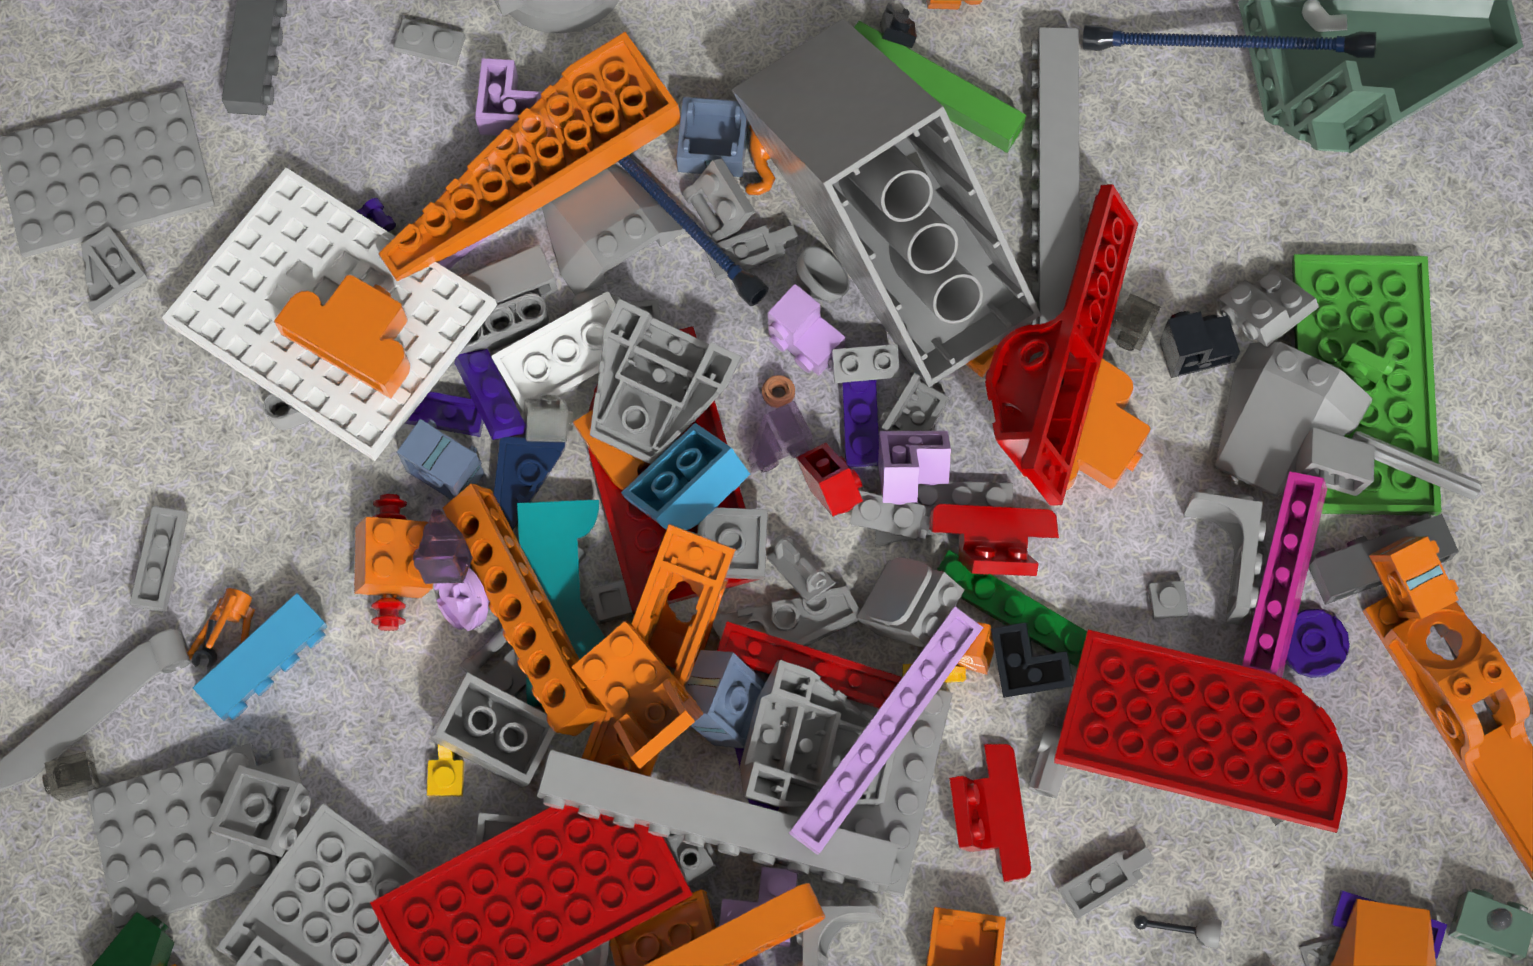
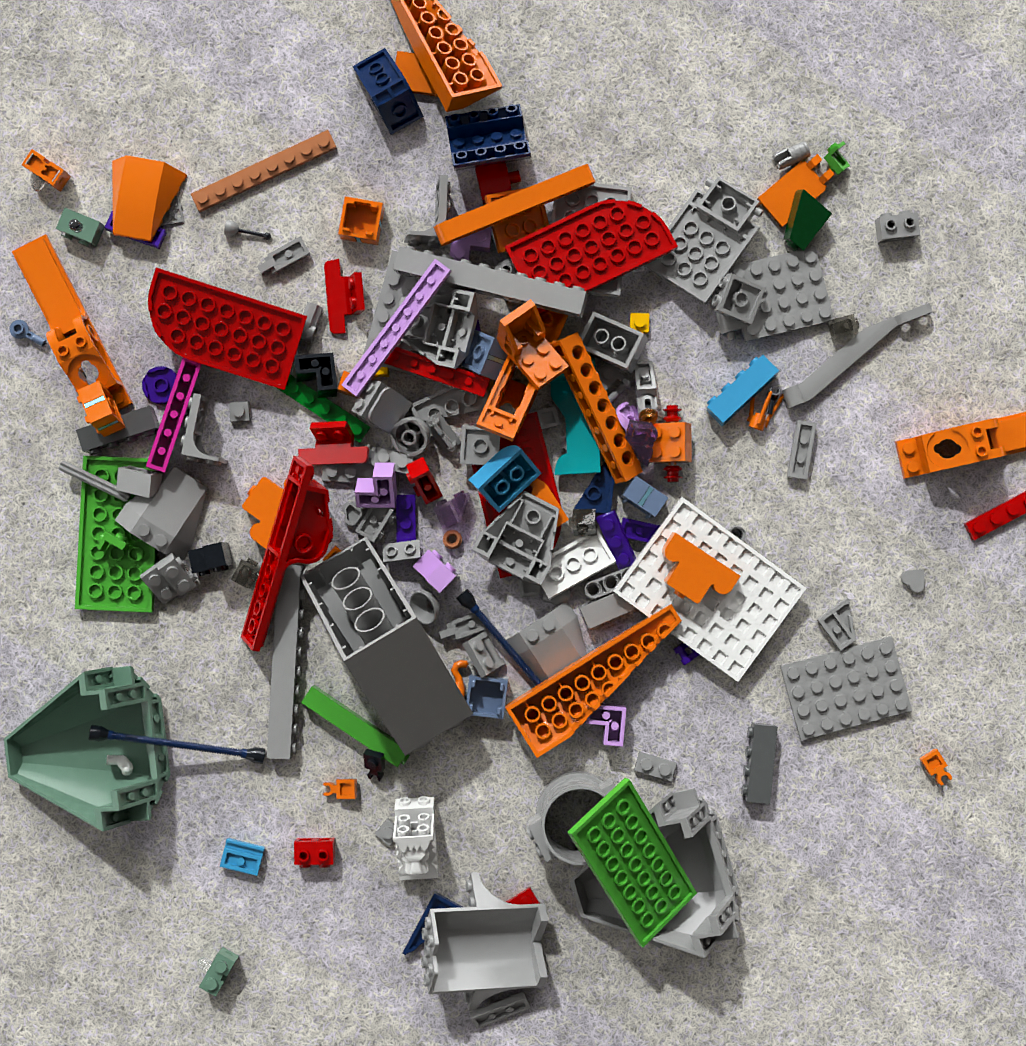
camera: 175 degrees right, 15 degrees up
(434, 645) = (645, 391): none -> light grey plate
(855, 556) = (410, 436): none -> light grey cylinder
(957, 424) = (352, 514): none -> light grey tile

